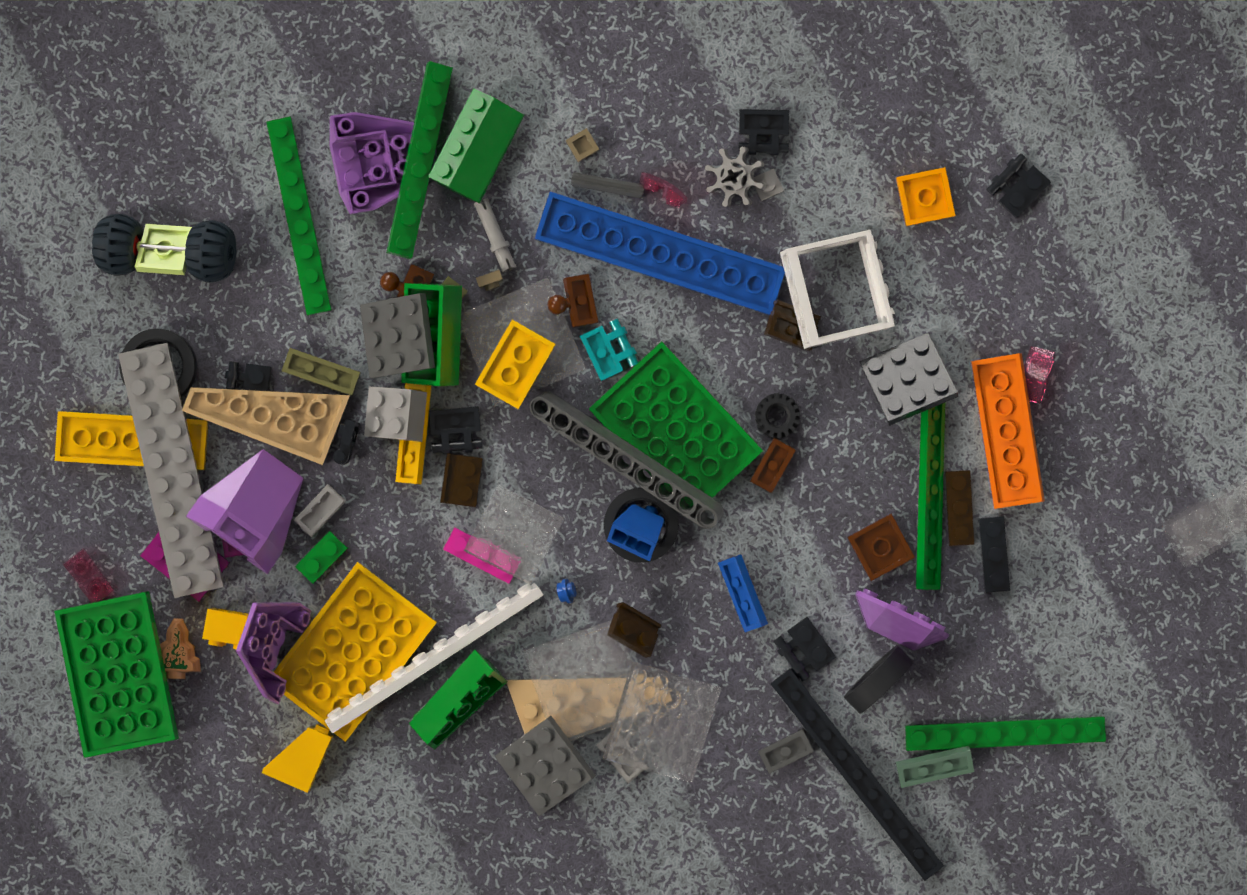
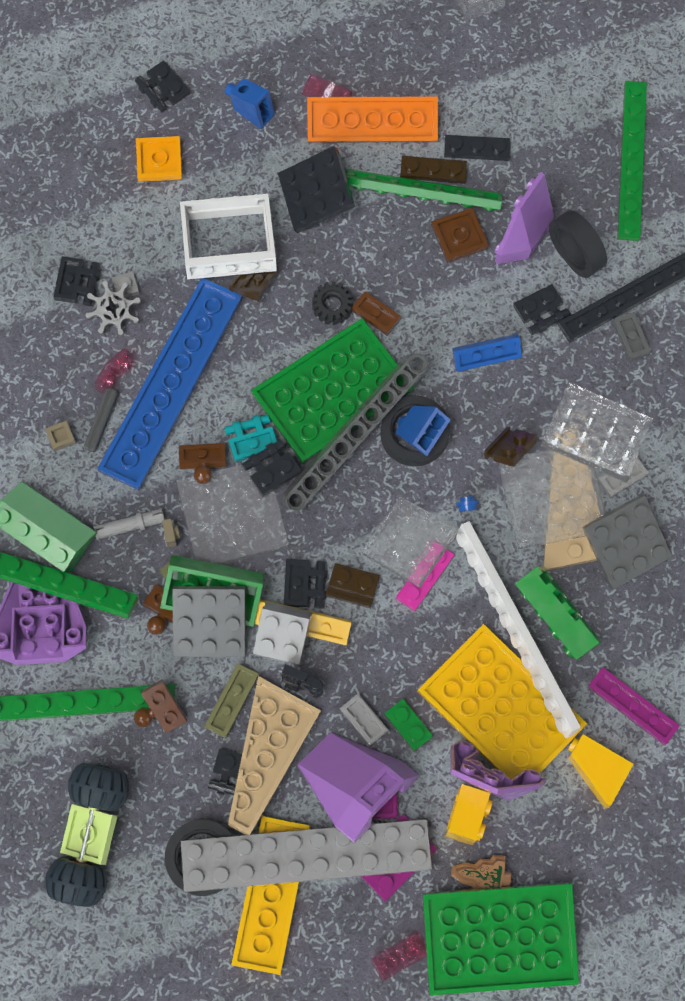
camera: 85 degrees left, 15 degrees down
(305, 299) = (162, 706): none -> reddish brown plate
(371, 788) = (633, 706): none -> magenta plate
(515, 364) = (252, 517): yellow plate -> none
(568, 381) = (274, 474): none -> black plate
(935, 766) = (656, 217): sand green plate -> none
(1008, 289) = (251, 102): none -> blue torso

